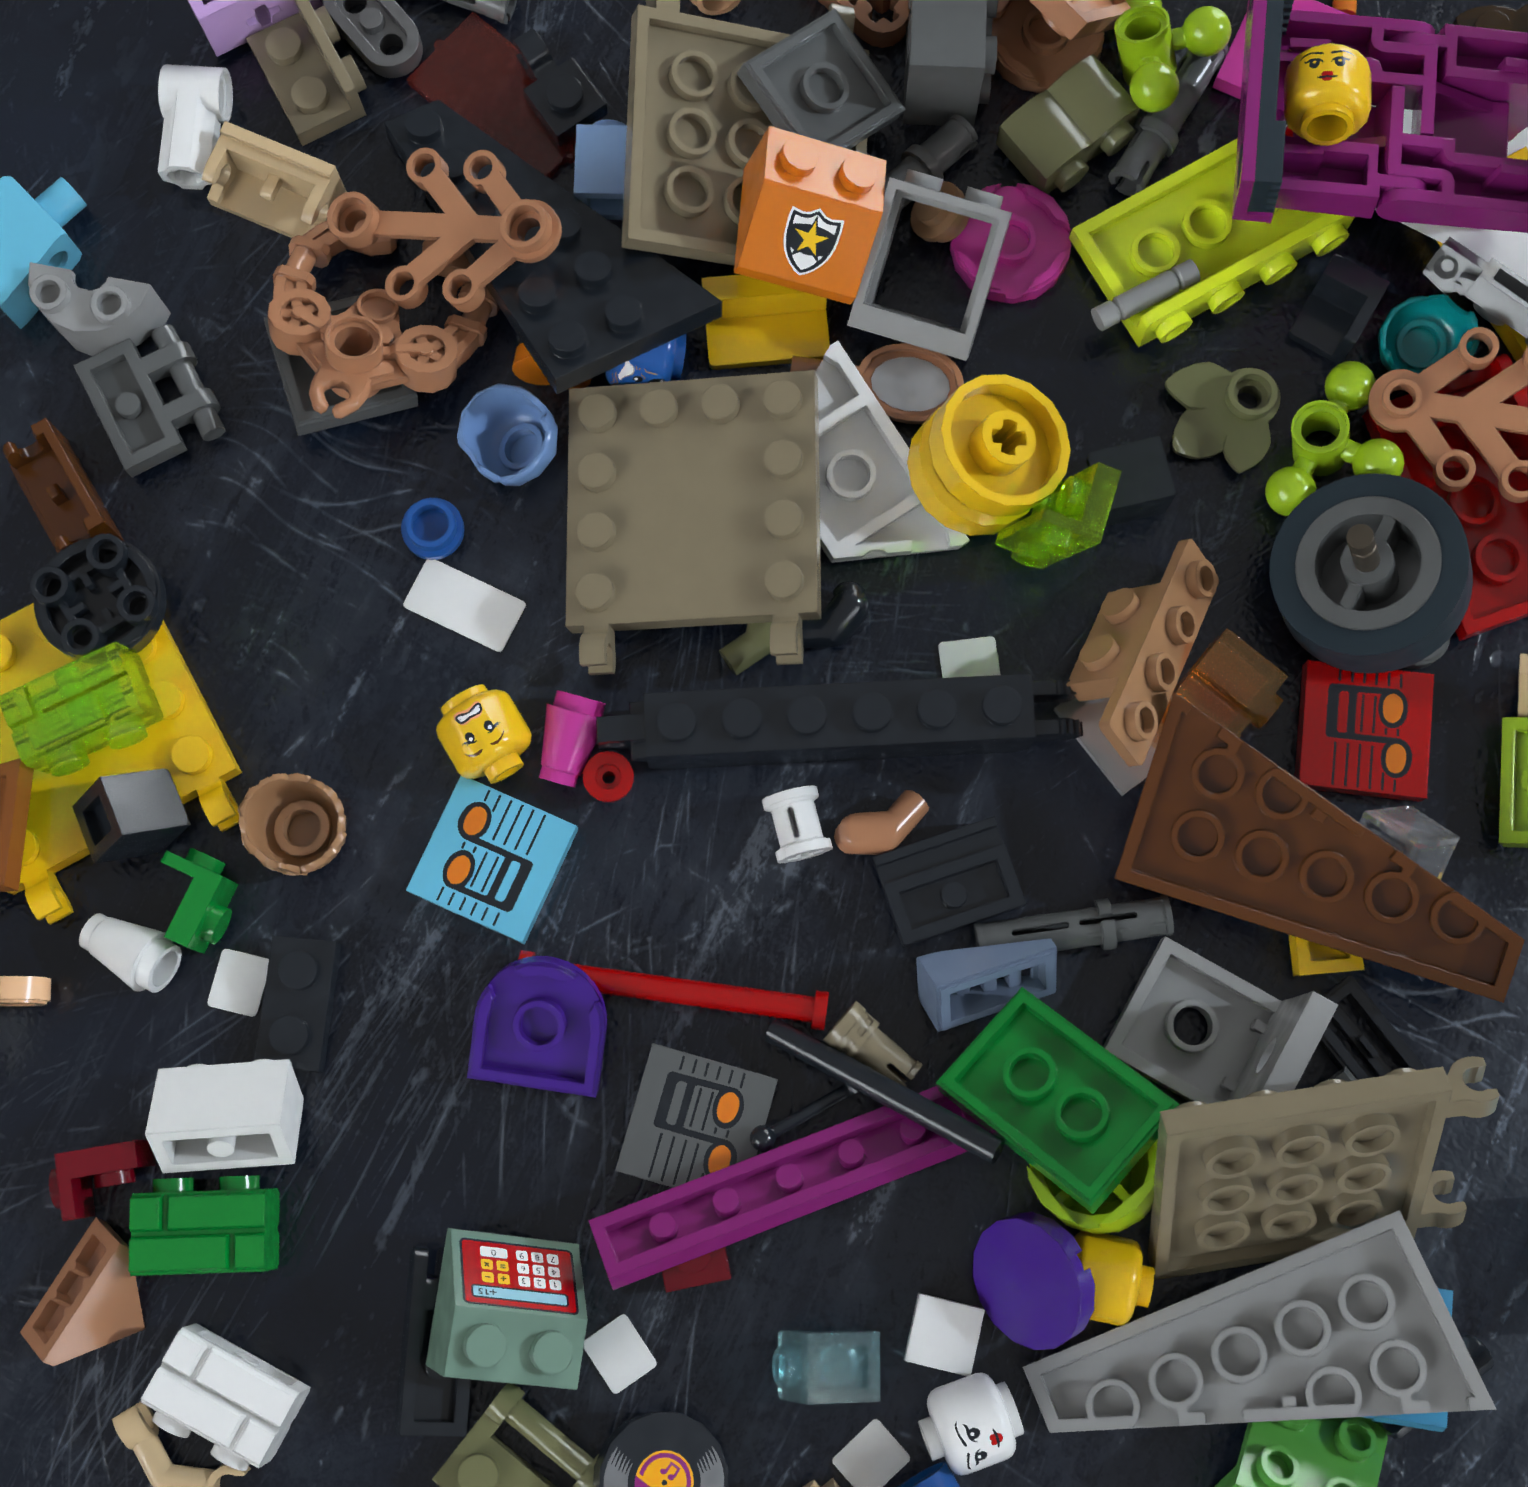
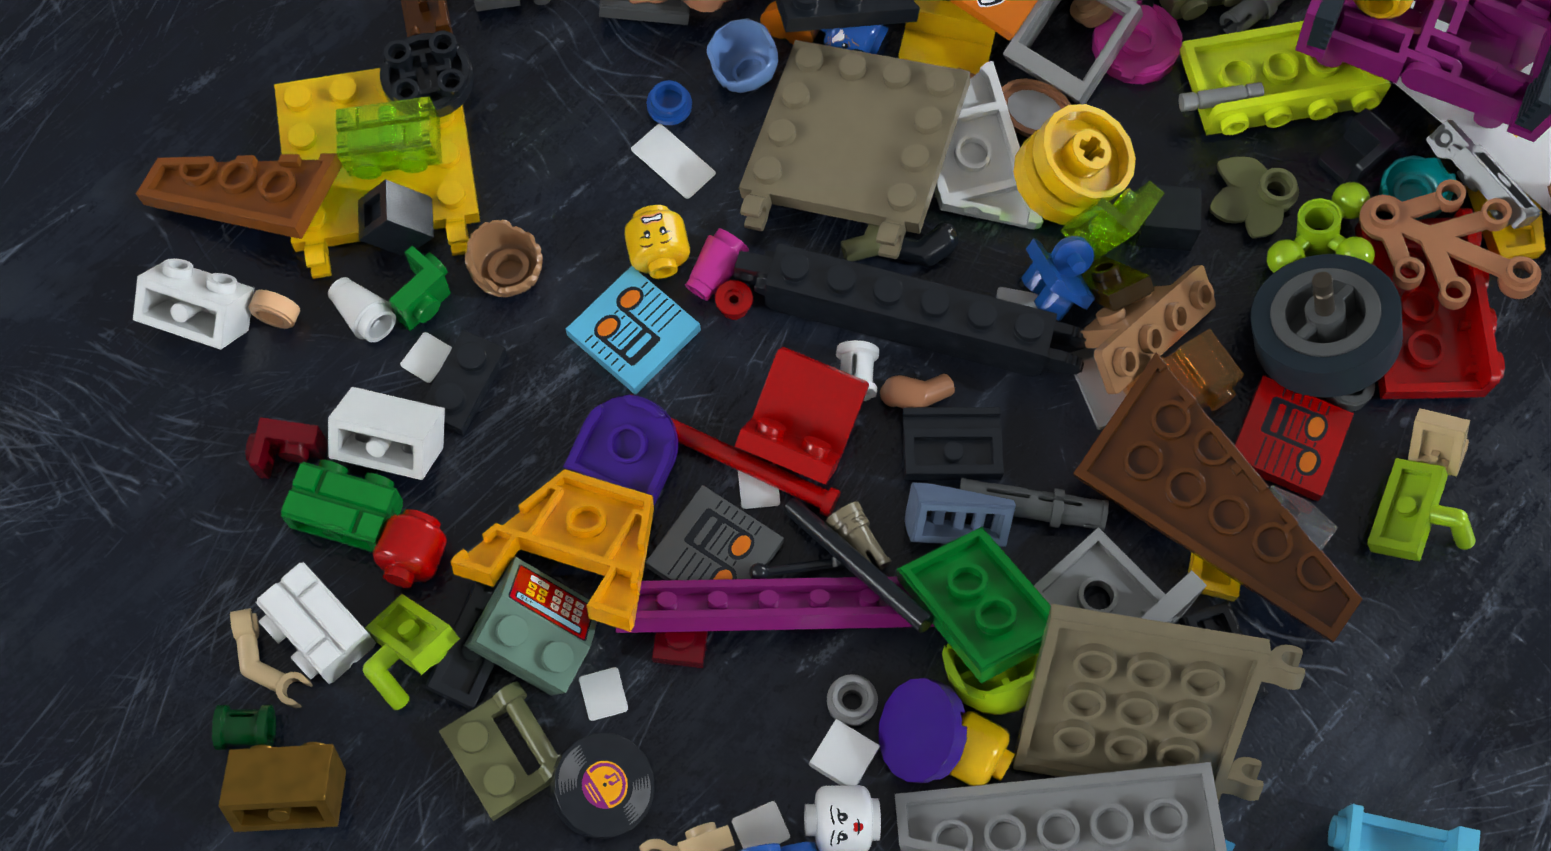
camera: 15 degrees right, 10 degrees down
(88, 1301) = (246, 531): nougat slope -> none
(310, 1257) = (410, 548): none -> red head
(355, 1380) = (405, 634): none -> lime plate
(525, 1156) = (580, 525): none -> light orange wing
(722, 1026) = (757, 493): none -> white sticker
(751, 918) = (804, 415): none -> red bracket
(827, 1366) = (752, 746): clear light blue bracket -> none
(952, 1264) = (856, 685): none -> light grey plate
(1016, 617) = (1058, 275): none -> blue hips
(1082, 604) = (1116, 284): none -> dark brown plate

